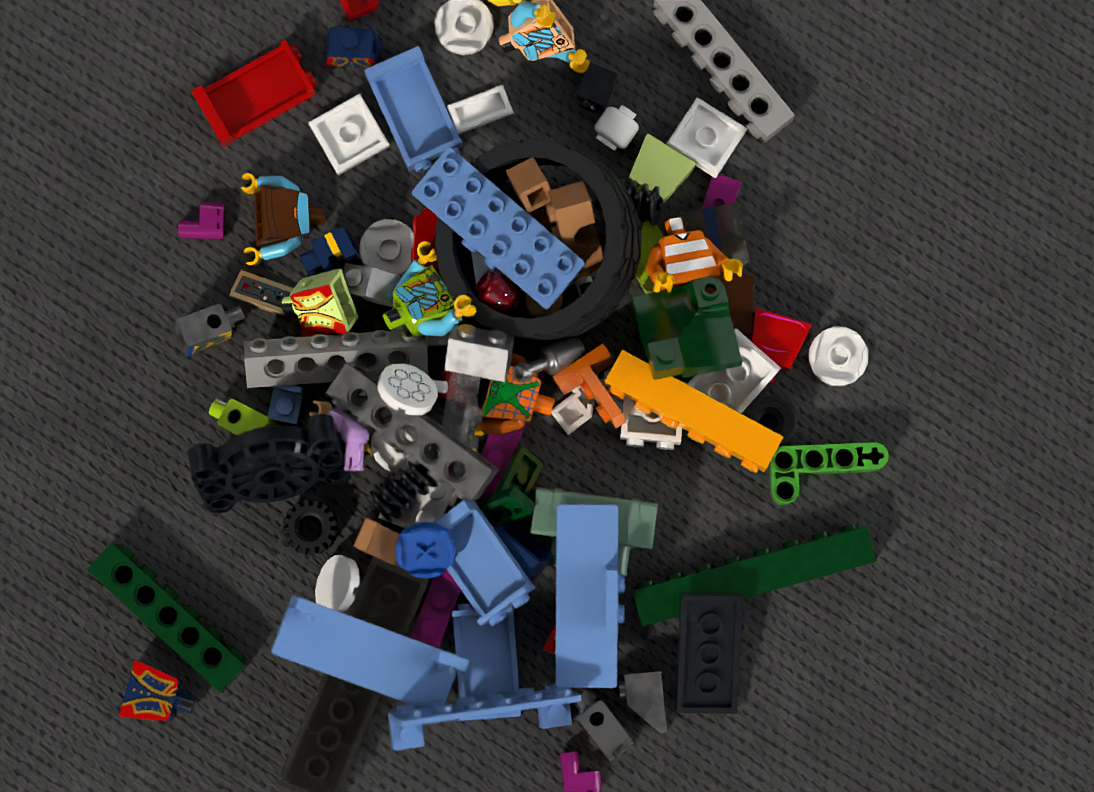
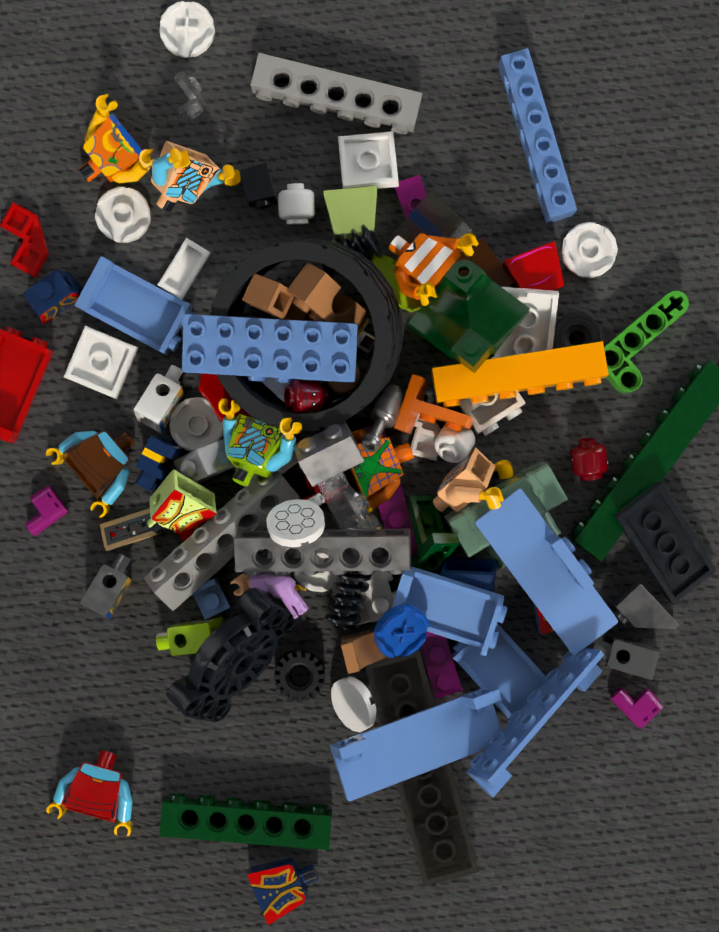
camera: 40 degrees left, 5 degrees up
(61, 492) = (96, 792): none -> torso
(364, 209) = (156, 409): none -> white torso
(581, 469) = (469, 480): none -> light nougat torso
(593, 432) = (454, 445): none -> white head
(699, 533) = (589, 459): none -> dark red head
(865, 225) = (537, 136): none -> medium blue brick

